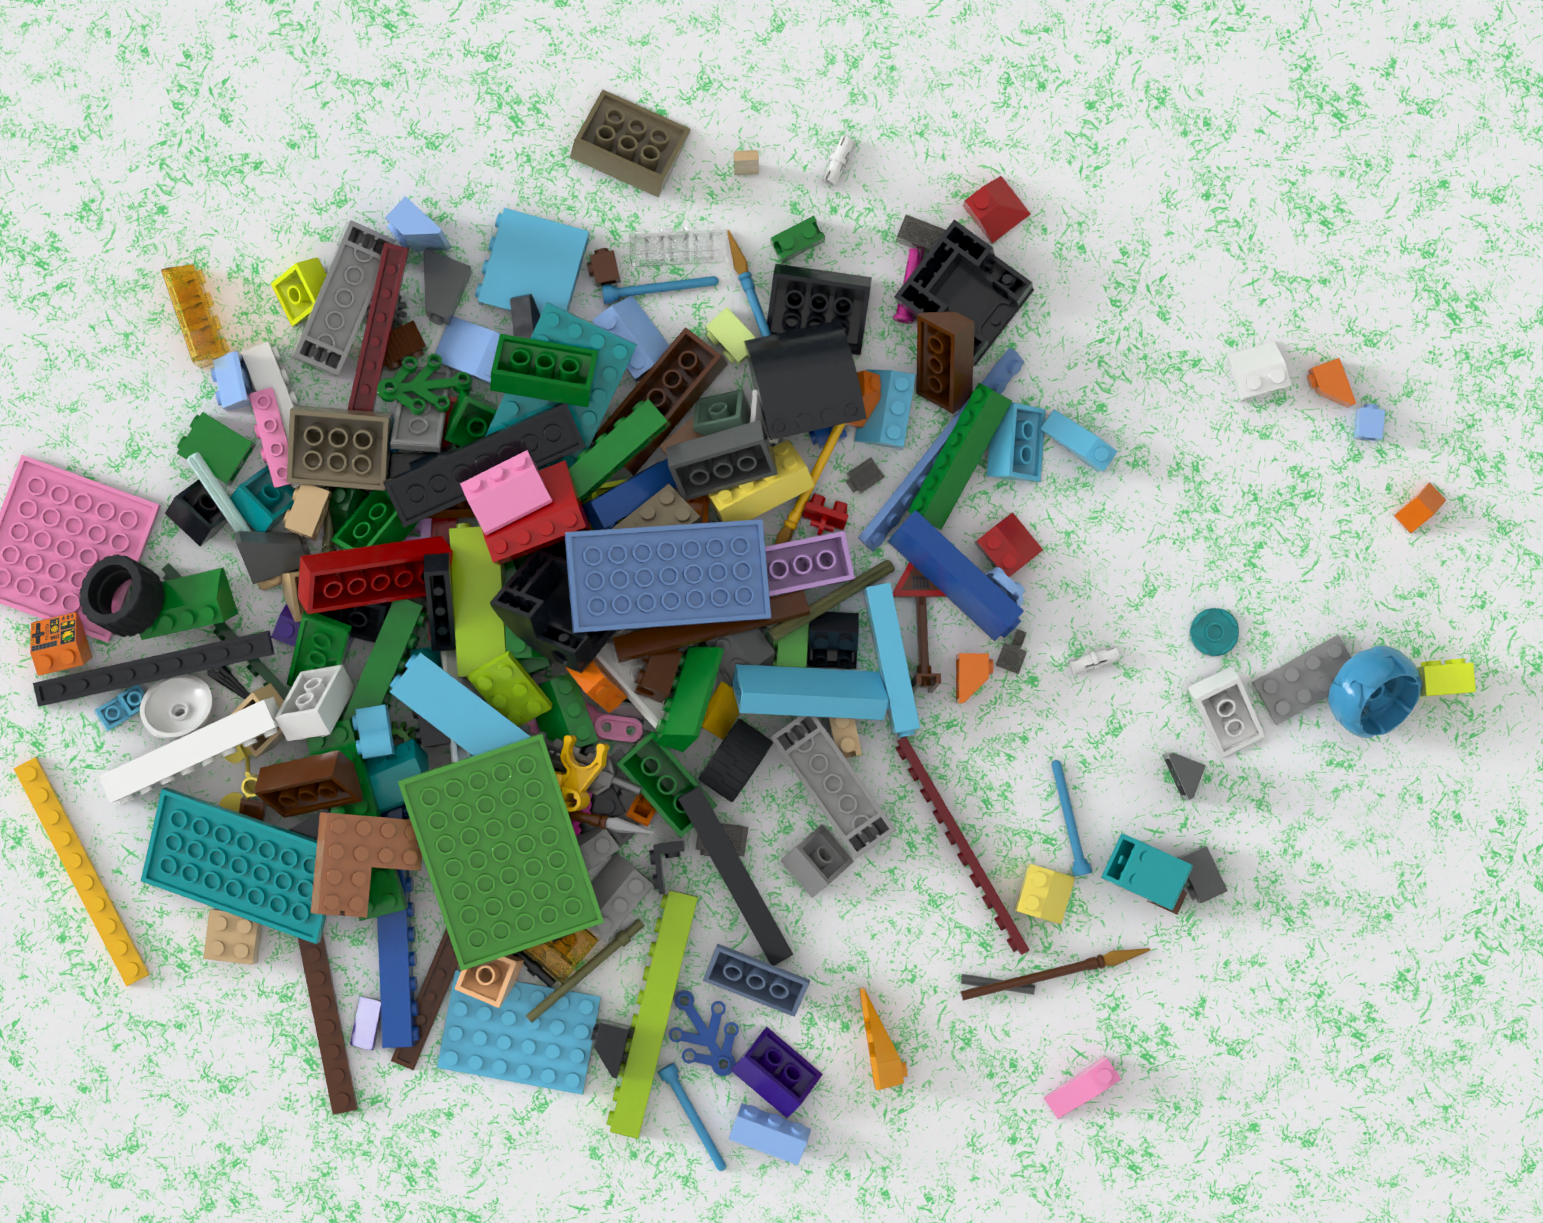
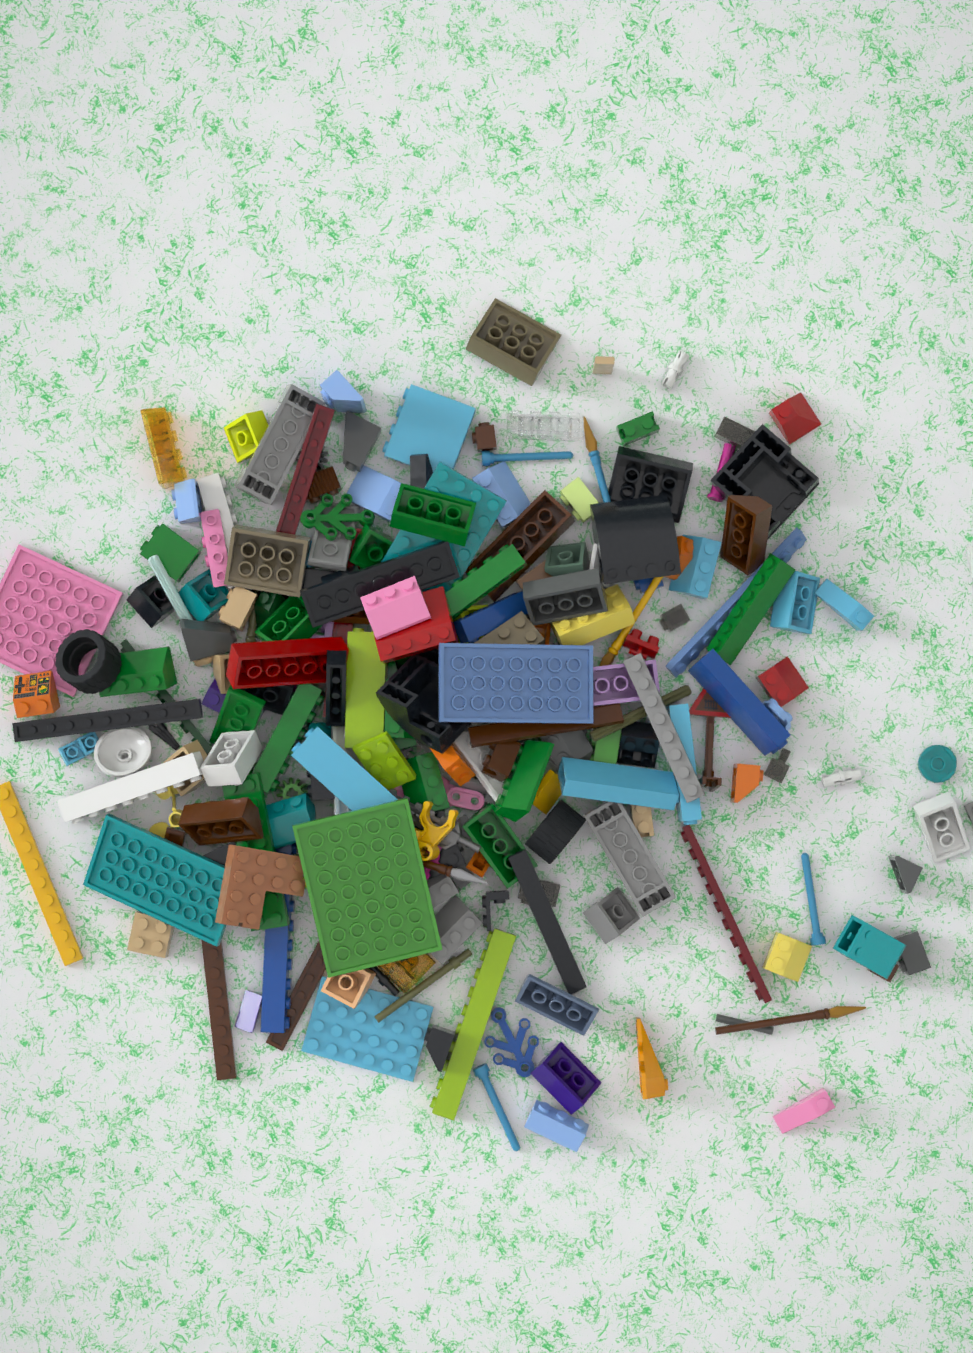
camera: 10 degrees right, 0 degrees up
(374, 732) = (276, 785): medium azure brick -> none
(862, 616) = (664, 728): none -> light grey plate

